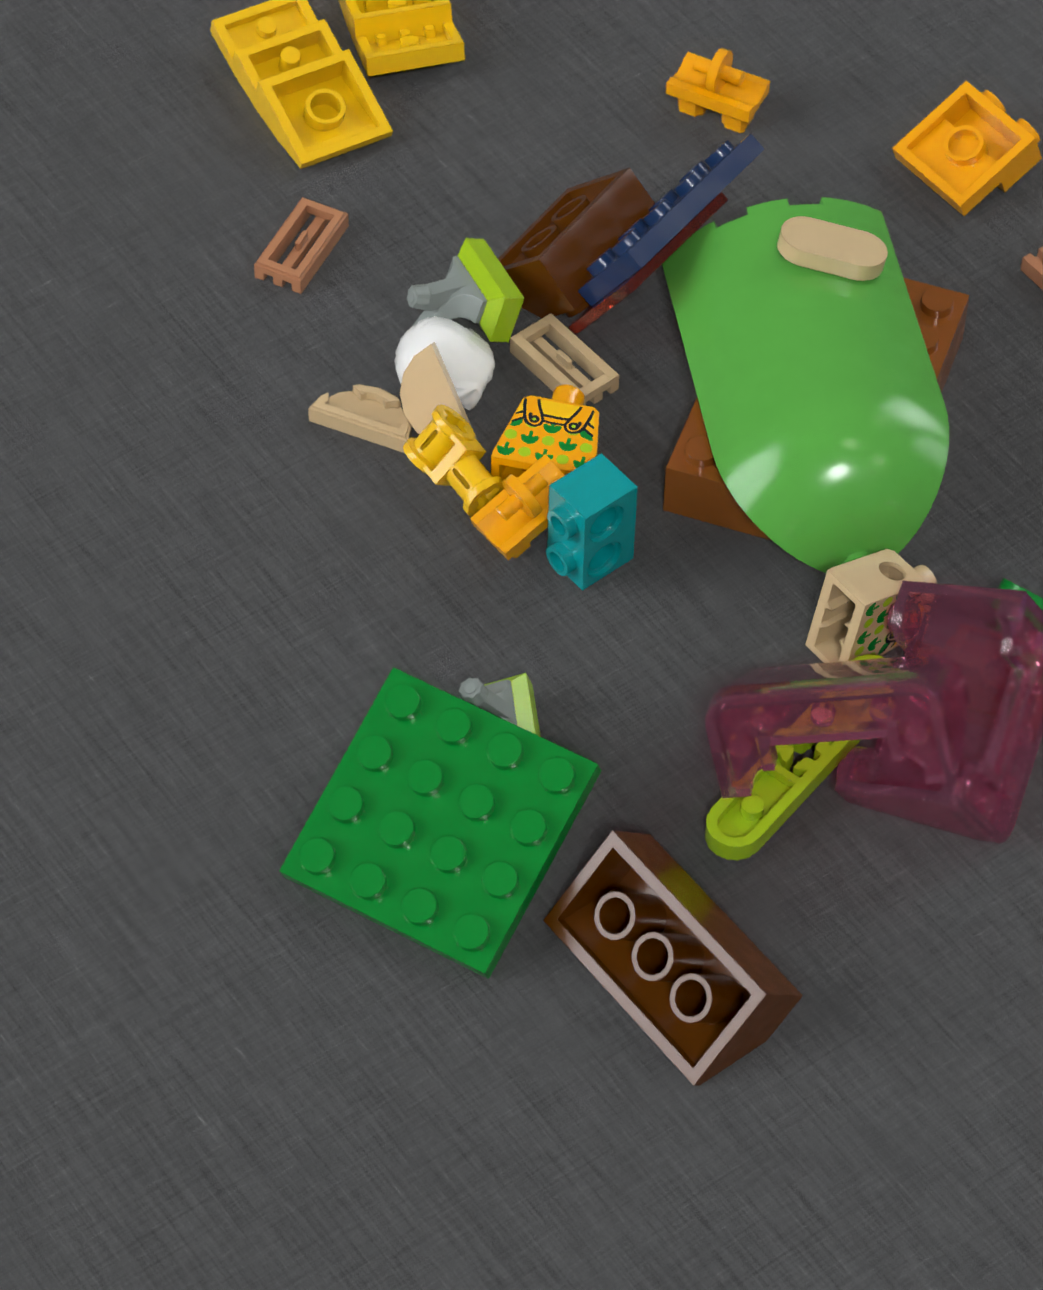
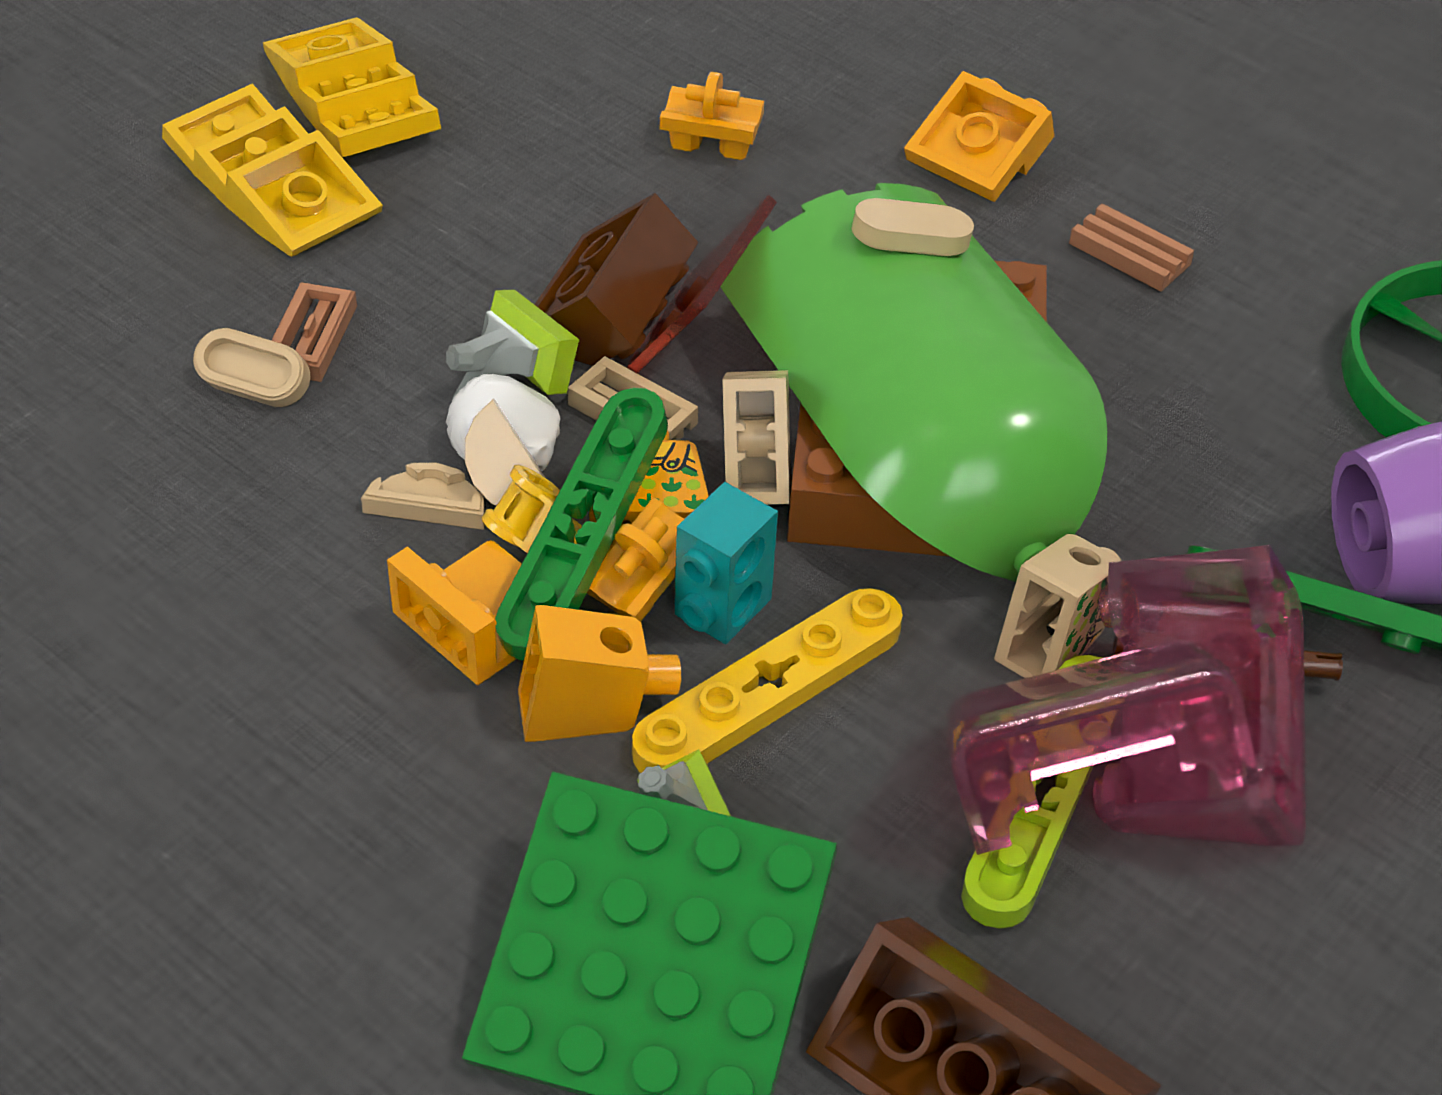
camera: 15 degrees left, 5 degrees down
(242, 272) = (251, 367): none -> tan tile
(382, 522) = (456, 605): none -> light orange bracket
(454, 595) = (588, 674): none -> light orange torso
(505, 435) = (602, 477): none -> green piece
(575, 643) = (732, 704): none -> yellow piece
(651, 413) = (758, 434): none -> tan brick
(668, 217) = (712, 235): dark blue plate -> none

